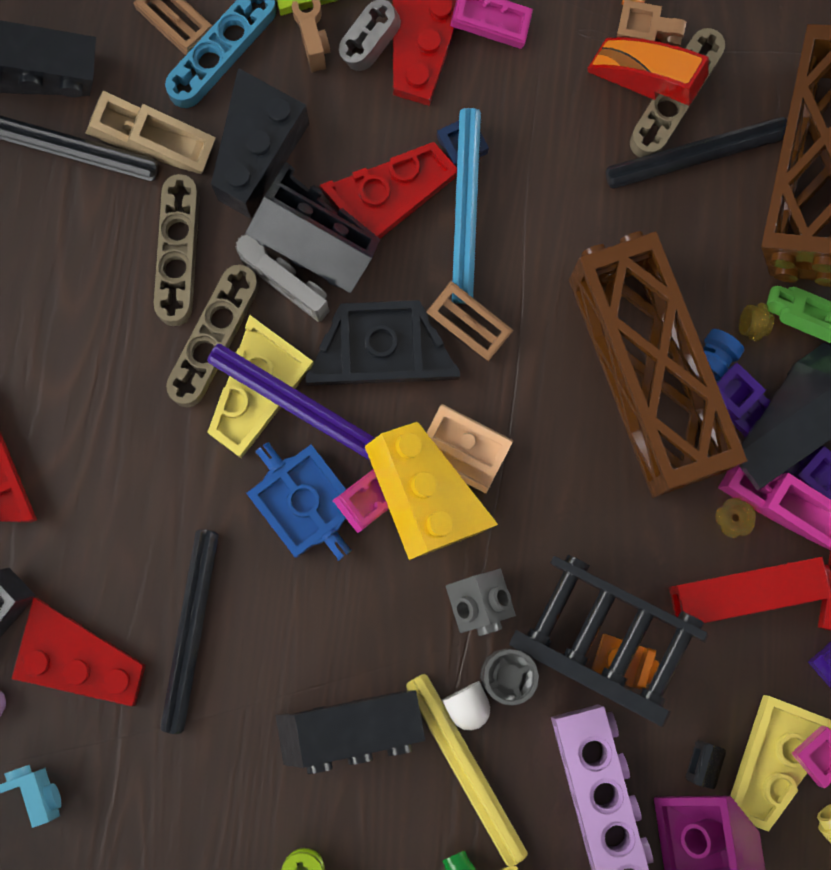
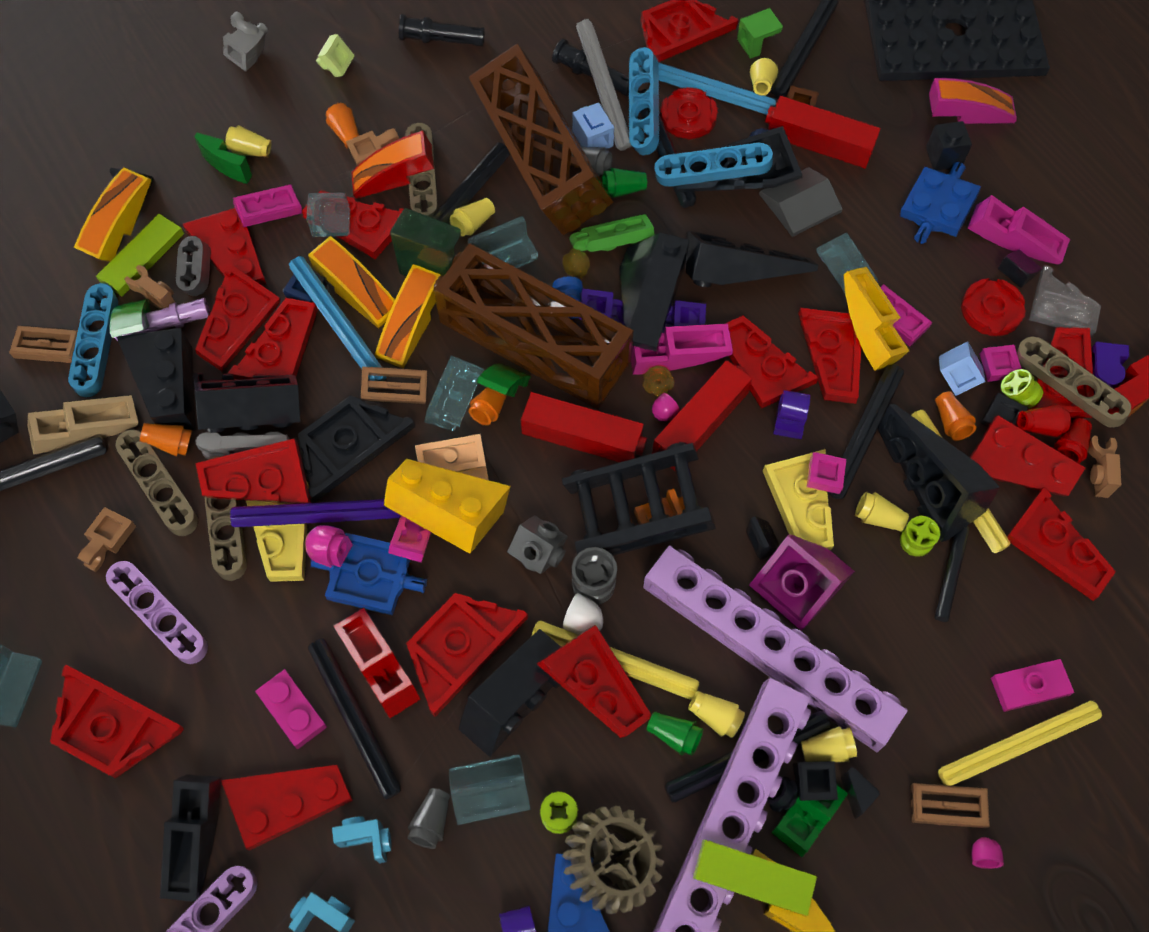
camera: 35 degrees left, 15 degrees down
(83, 386) = (153, 614): none -> lavender beam
(96, 270) = (105, 533): none -> medium nougat plate
(114, 743) = (358, 831): none -> medium azure bracket
(141, 577) = (291, 709): none -> dark pink plate
(185, 783) = (430, 819): none -> dark grey cone
(215, 212) = (168, 438): none -> orange cone
(246, 595) = (377, 663): none -> red slope
(258, 796) = (488, 789): none -> clear light blue panel
(266, 52) = (129, 318): none -> slope
(270, 322) = (257, 474): none -> red wing
(282, 448) = (327, 545): none -> dark pink piece
(310, 77) = (176, 315): none -> lavender pin
(333, 638) = (458, 644): none -> red wing
(370, 125) = (235, 317): none -> red wing
(430, 783) = (597, 681): none -> red wing
(513, 173) = (352, 281): none -> slope
(521, 375) = (453, 394): none -> clear light blue hinge
(540, 254) = (407, 317): none -> slope
(541, 79) = (328, 214): none -> clear light blue panel
(550, 410) = (486, 406): none -> orange cone
(567, 105) = (368, 226): none -> red wing
(579, 401) = (503, 379): none -> green slope
(610, 196) = (423, 242): none -> clear green panel
(620, 514) = (582, 428): none -> red brick
(689, 186) = (472, 216): none -> light yellow cone
(696, 248) = (507, 243): none -> clear light blue panel
(719, 552) = (665, 408): none -> dark pink hinge

